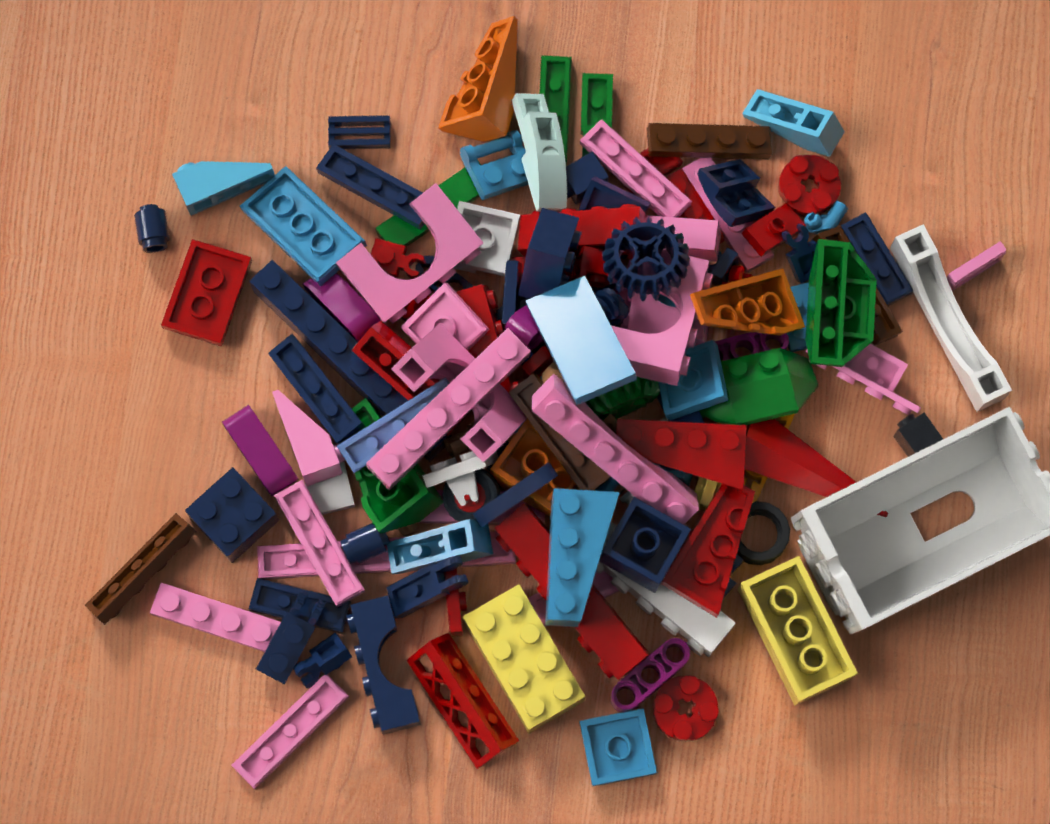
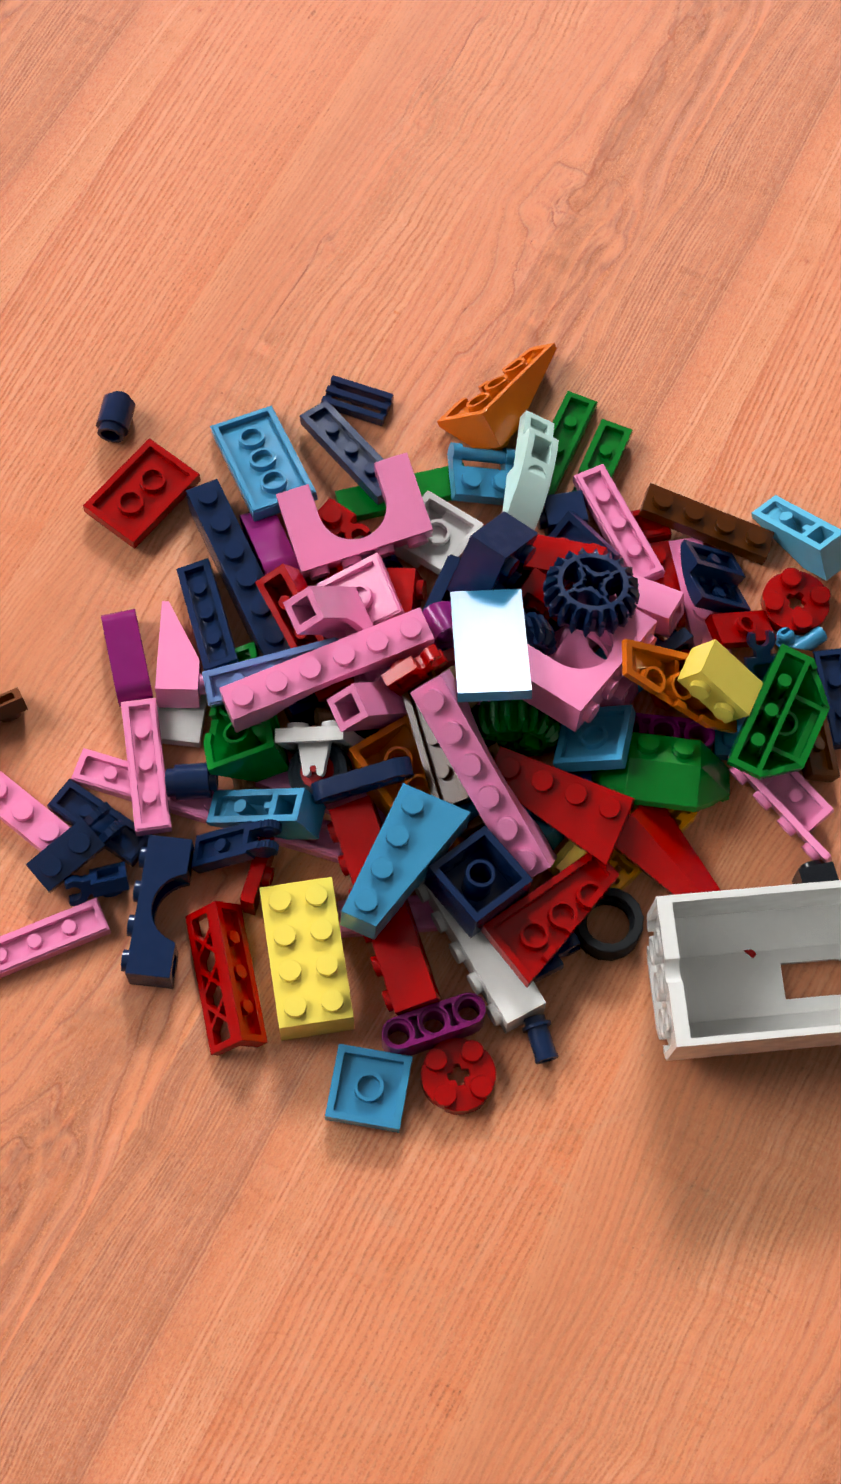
camera: 20 degrees right, 10 degrees down
(215, 182) = (196, 396): medium azure slope -> none
(232, 515) = (71, 707): dark blue brick -> none
(517, 387) = (411, 671): none -> red plate
(740, 652) = (540, 1038): none -> dark blue pin
(779, 294) = (720, 681): none -> light yellow brick
(797, 630) = (610, 1037): light yellow brick -> none

